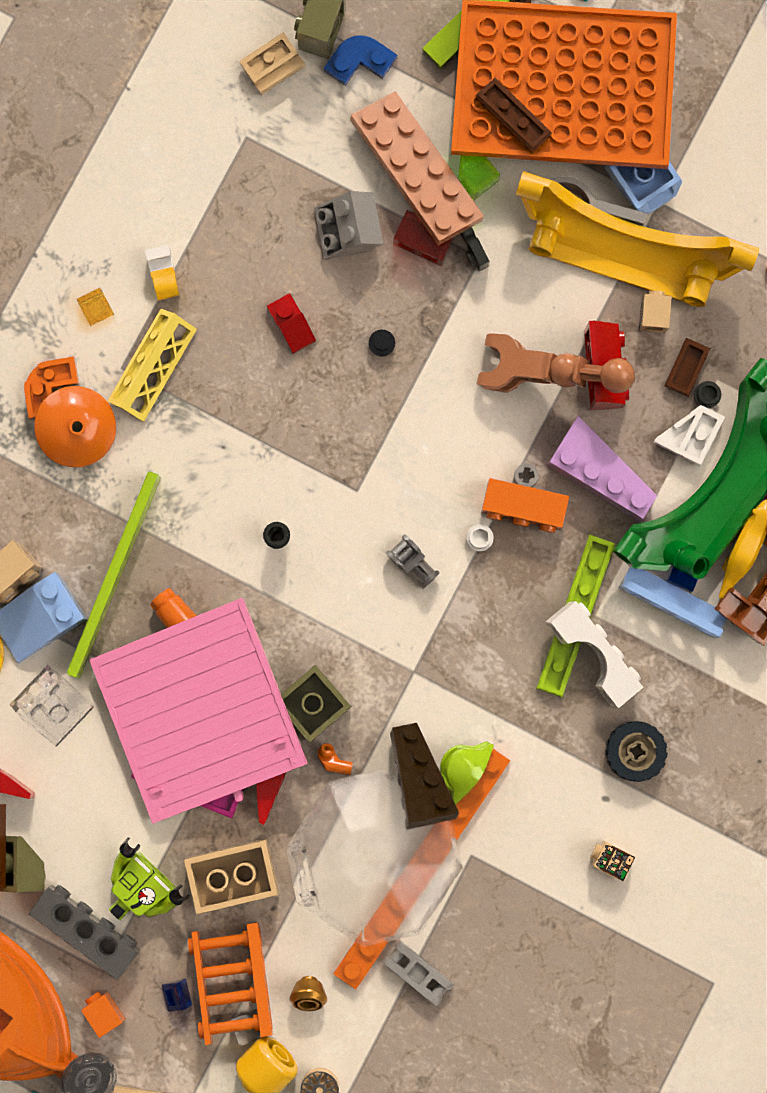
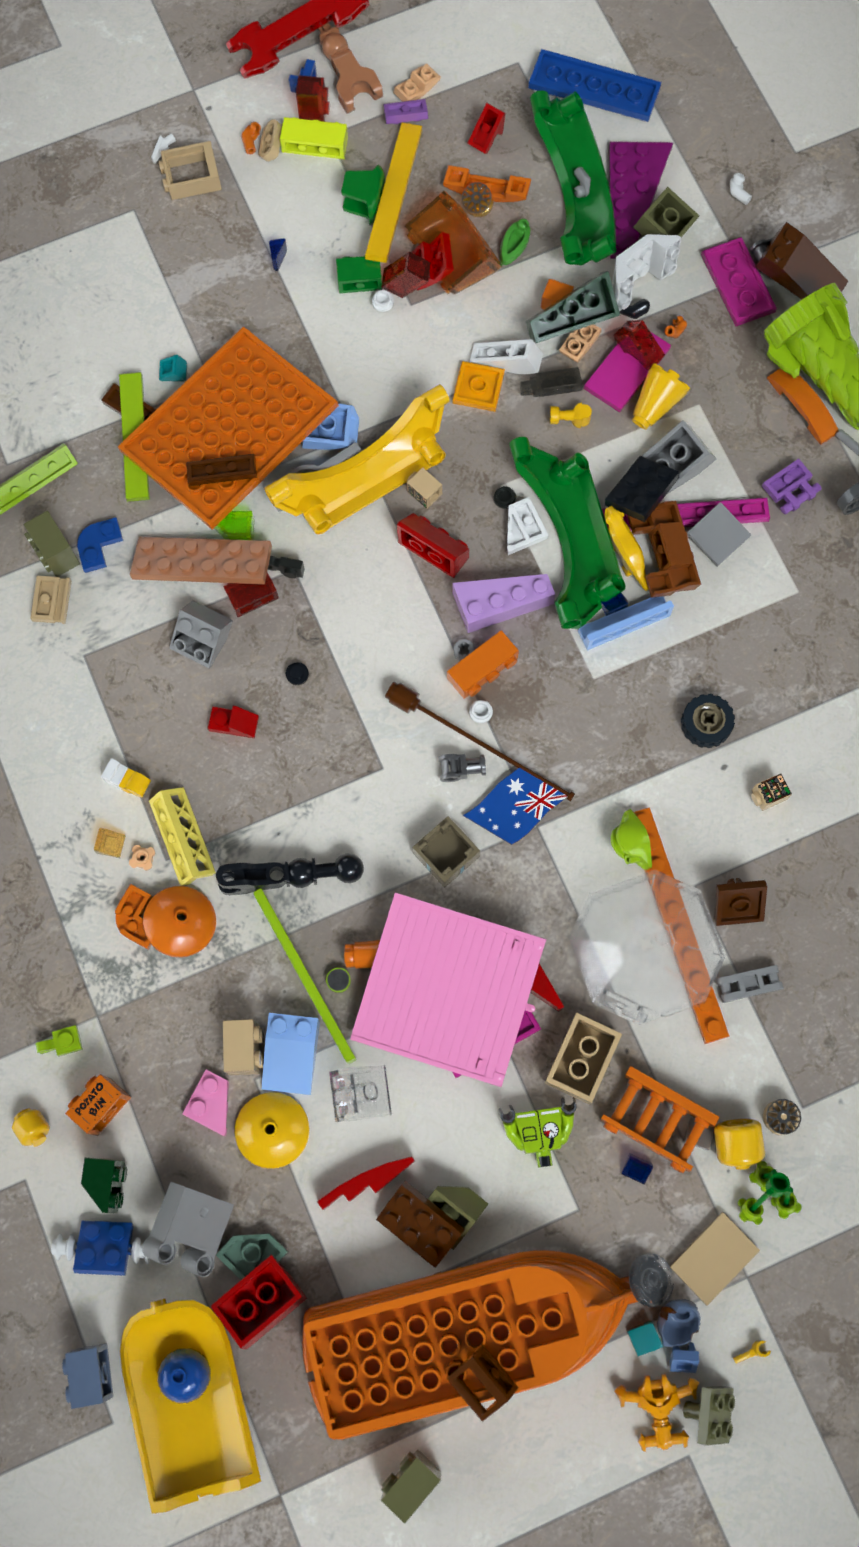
camera: 50 degrees left, 10 degrees down
(46, 913) = (580, 1193): dark grey brick -> none
(102, 1013) = (610, 1232): orange brick -> none
(110, 351) = (148, 854): none -> light nougat plate
(135, 607) = (338, 980): none -> tile
(197, 495) = (298, 873): none -> black piece
(271, 529) = (369, 835): pearl dark grey cone -> none
(308, 994) = (708, 1071): pearl gold cone -> none
(314, 703) = (507, 904): olive brick -> none
(322, 610) = (446, 851): none -> dark tan container
(331, 761) = (555, 929): orange arm -> none
(421, 635) = (515, 802): none -> flag
(421, 783) = (625, 873): dark brown wing -> none
(484, 909) = (740, 902): none -> reddish brown tile
(565, 370) = (404, 577): nougat piece -> none
(584, 590) = (584, 691): lime tile -> none
(616, 680) = (648, 695): white arch -> none
(687, 367) = (476, 496): reddish brown tile -> none

